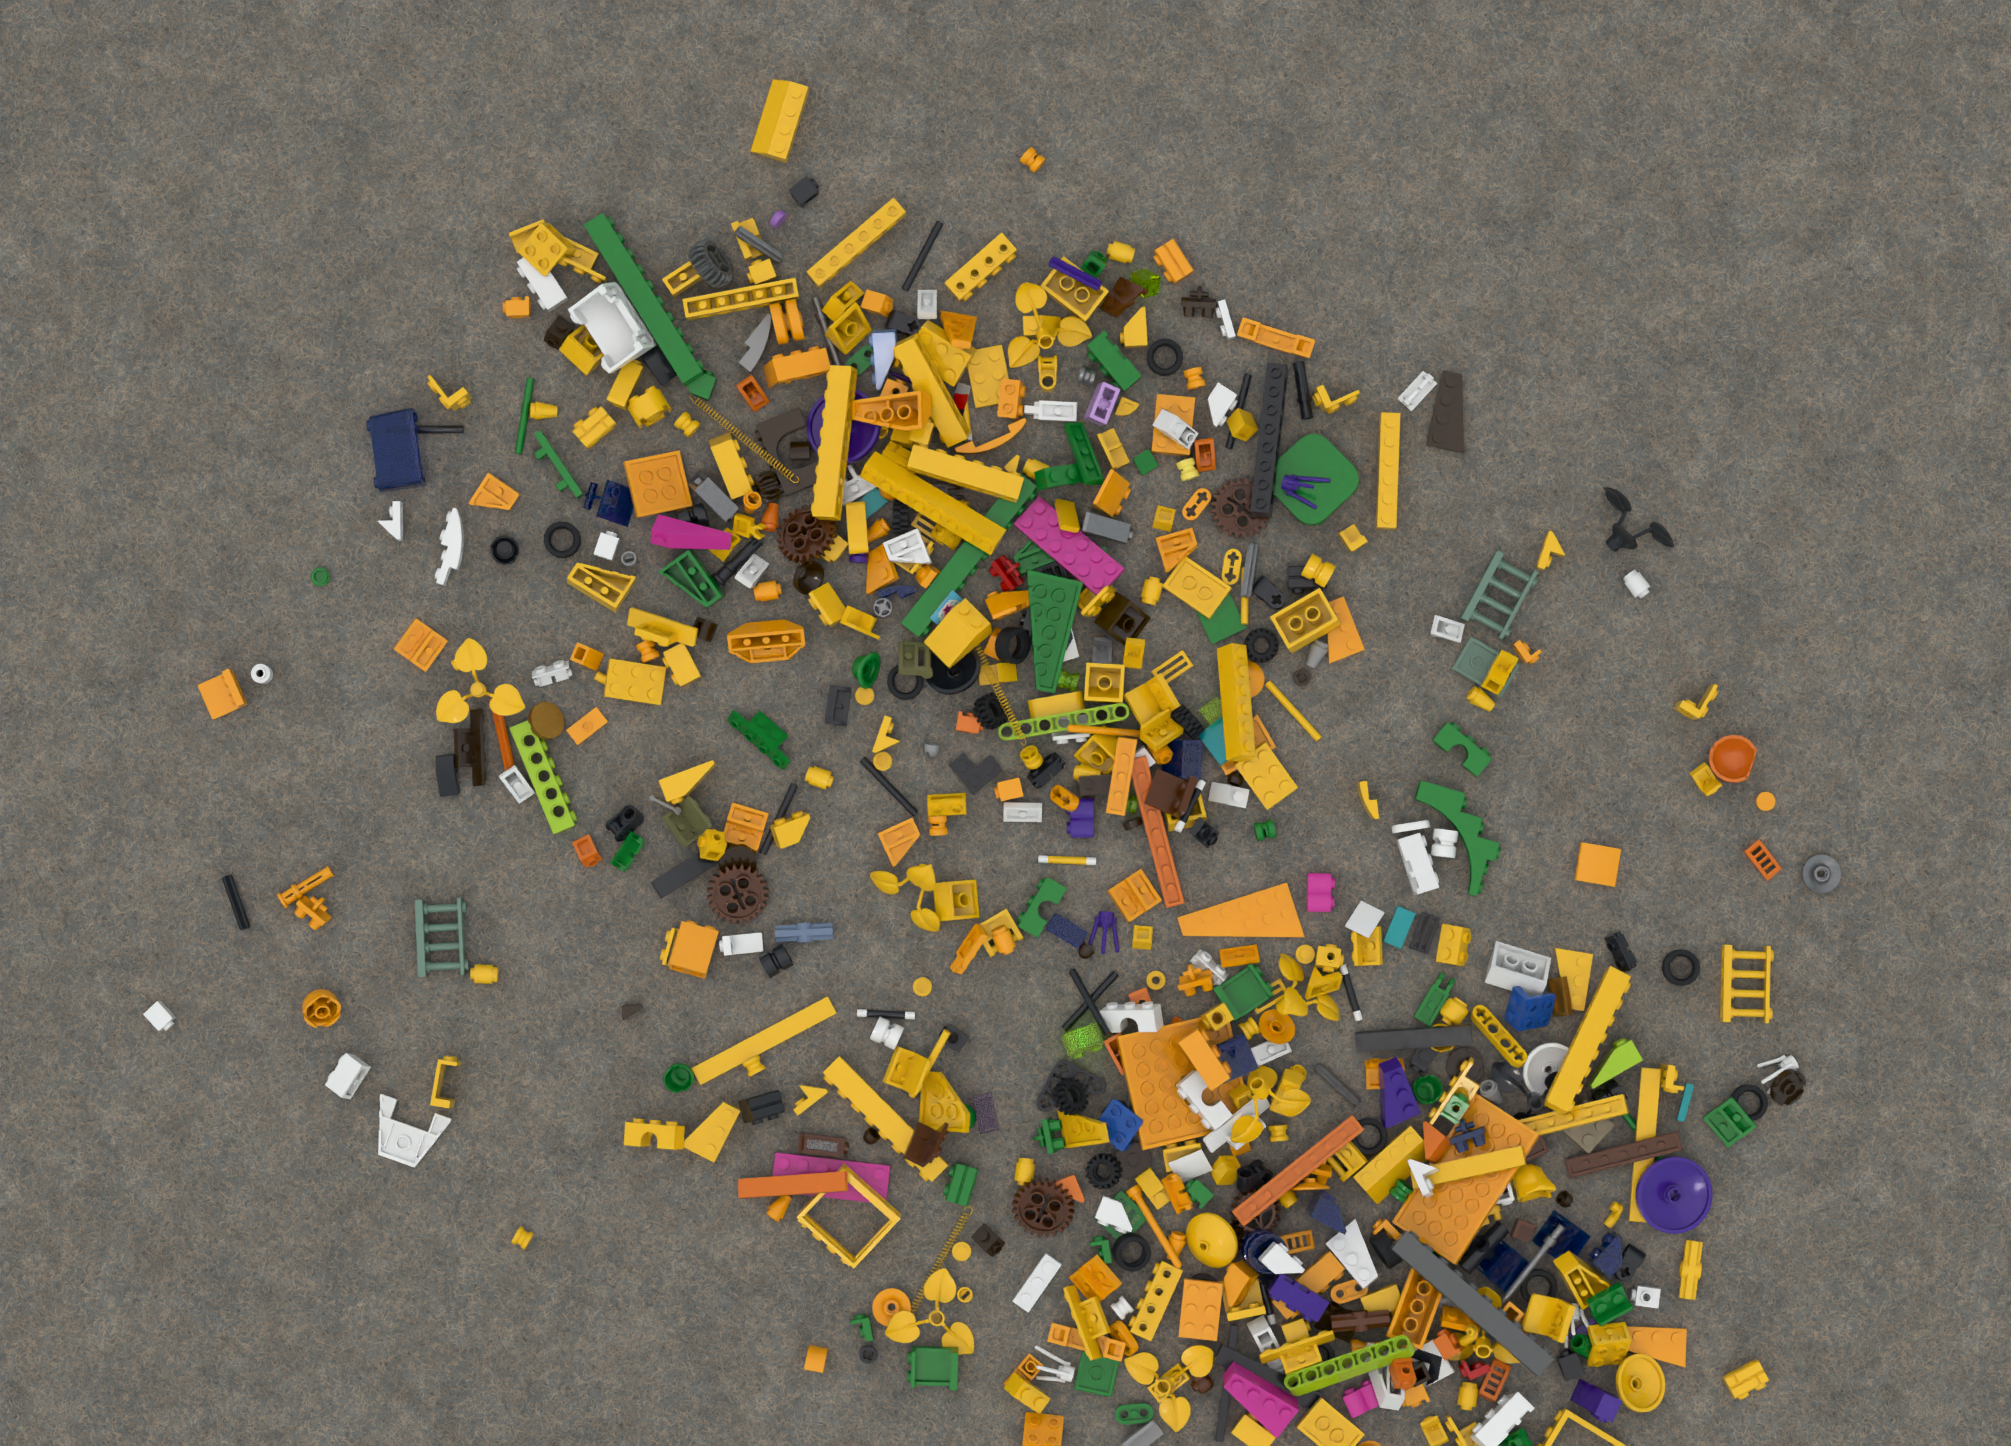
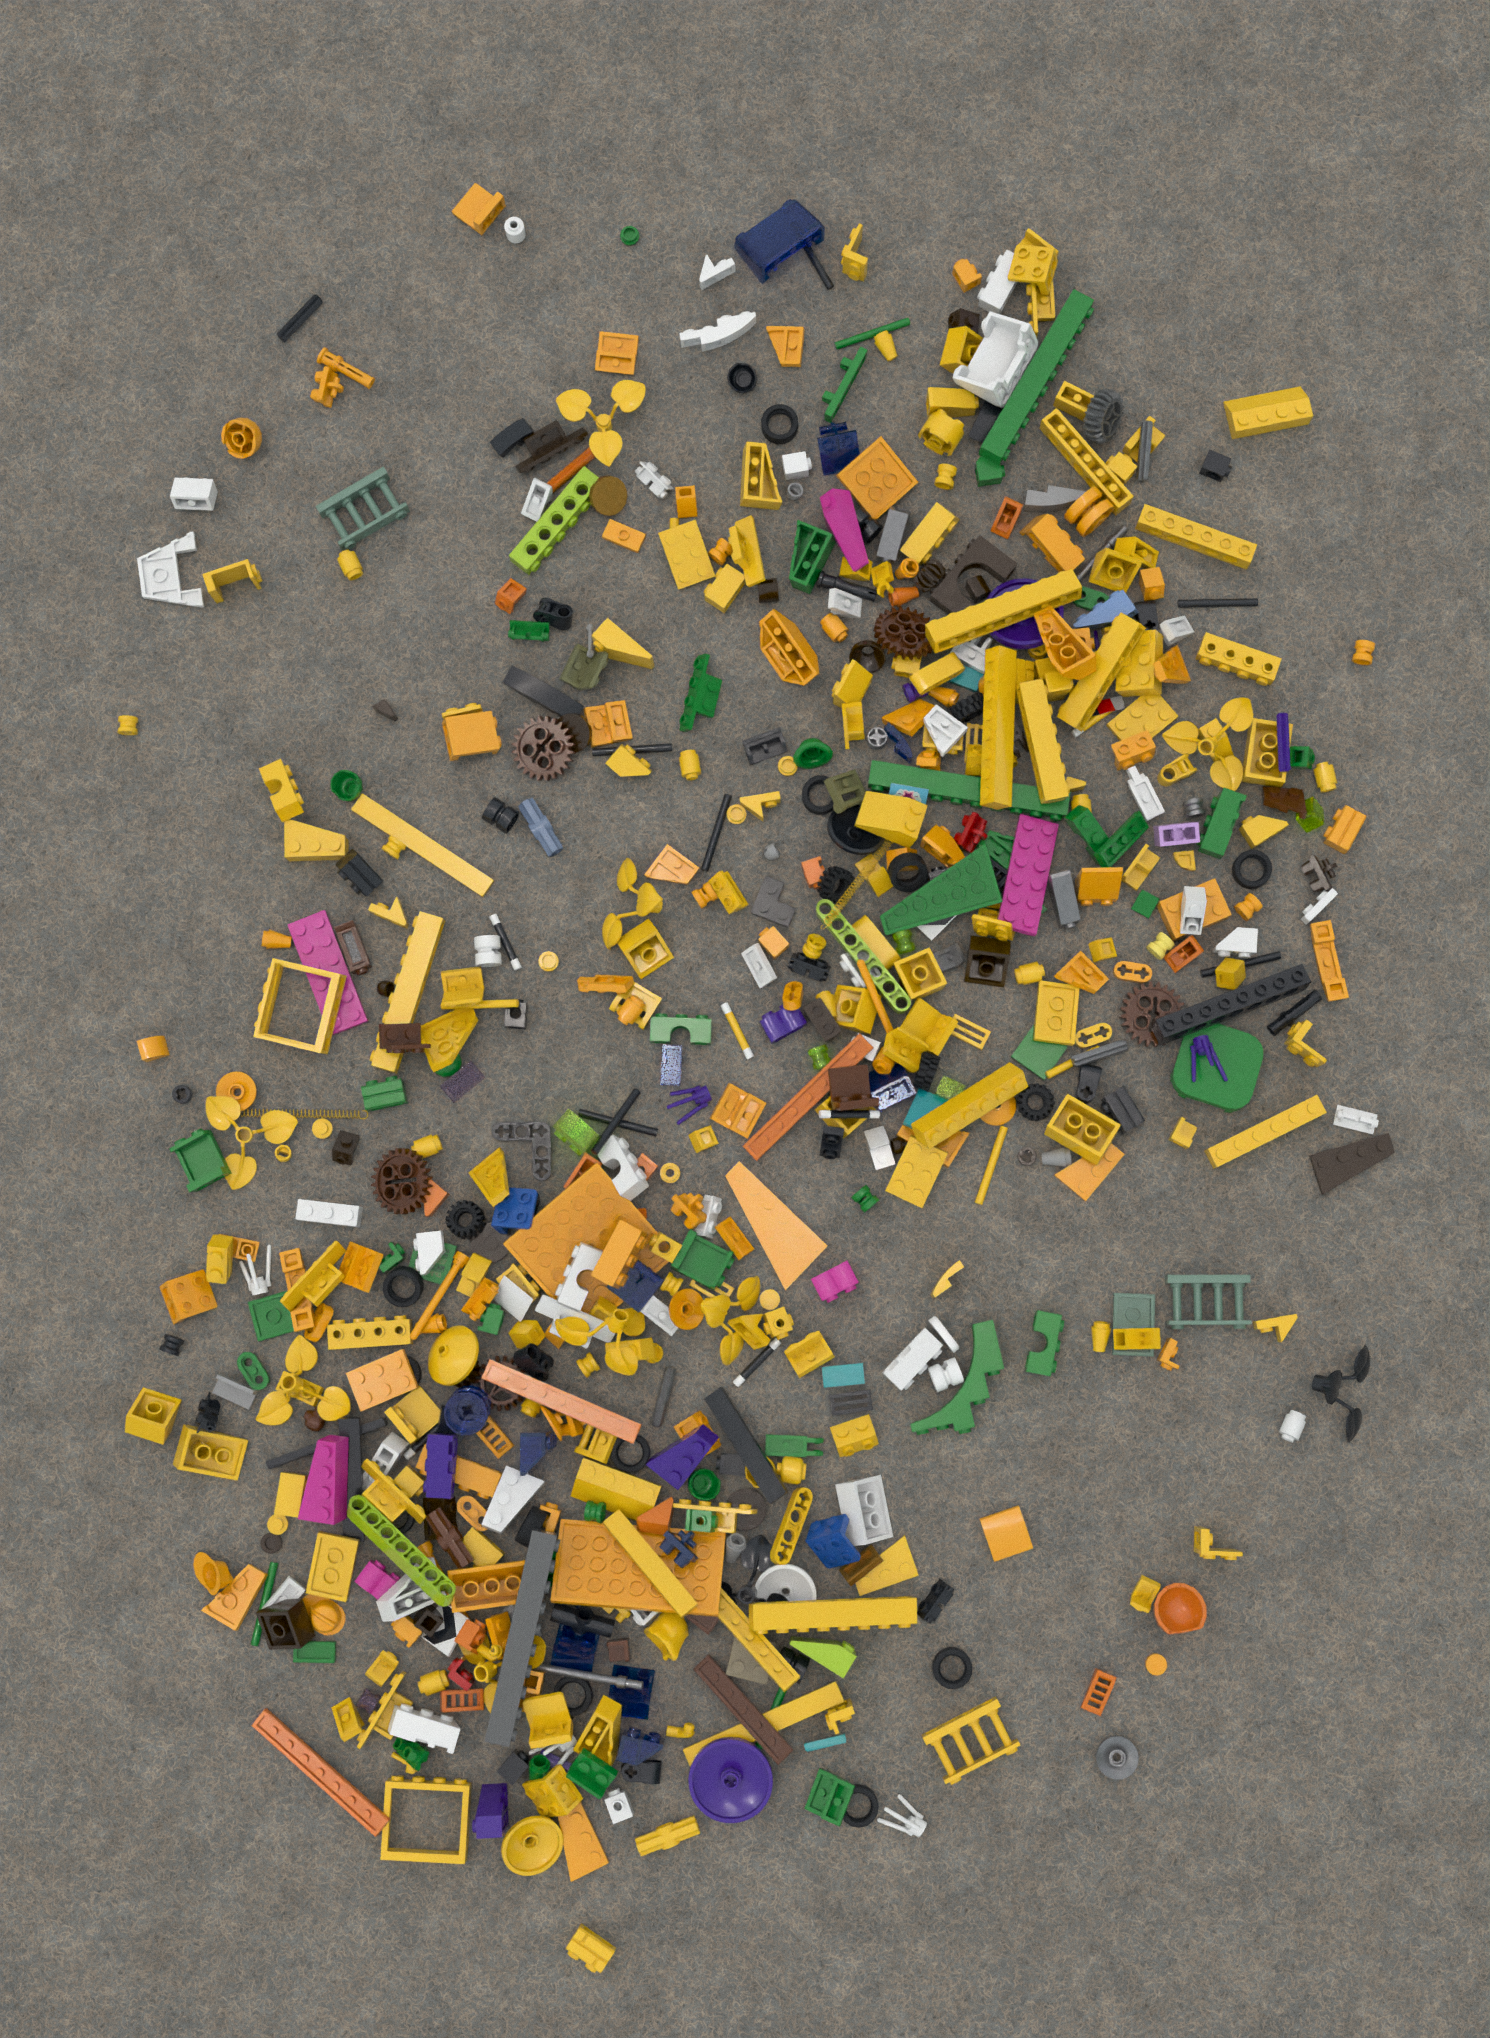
camera: 65 degrees right, 5 degrees down
(160, 1016) = (162, 306): white brick -> none
(594, 427) = (896, 397): yellow brick -> none
(712, 844) = (575, 699): yellow brick -> none
(741, 944) = (499, 776): white bracket -> none
(743, 436) = (962, 531): yellow piece -> none
(778, 218) = (1177, 457): medium lavender tile -> none
(792, 1185) = (301, 939): orange tile -> none
(866, 1328) = (203, 1079): green bracket -> none
(969, 448) = (1108, 769): light orange slope -> none
(1049, 1126) = (470, 1150): green hips -> none
(1063, 1100) = (509, 1145): black tyre -> none
(1067, 515) = (1055, 857): yellow tile -> none
(1085, 951) = (661, 1093): dark brown hinge -> none
(1121, 776) = (842, 1034): light orange tile -> none
(1122, 1308) = (346, 1306): white wheel -> none
(1133, 653) = (963, 987): yellow bracket -> none
(1133, 823) = (803, 1072): dark brown tile -> none
(1238, 1282) = (426, 1402): light orange slope -> none
(1279, 1261) = (462, 1428): white slope -> none
(1319, 571) = (1136, 1114): yellow wheel -> none
(1364, 919) = (832, 1337): white sticker -> none
(1402, 1373) = (420, 1599): orange brick -> none
(1420, 1173) = (620, 1520): white slope -> none
(1447, 629) = (1148, 1267): white slope -> none
(1568, 1199) = (670, 1674): dark brown hinge -> none
(1787, 1087) = (893, 1836): dark brown tile -> none

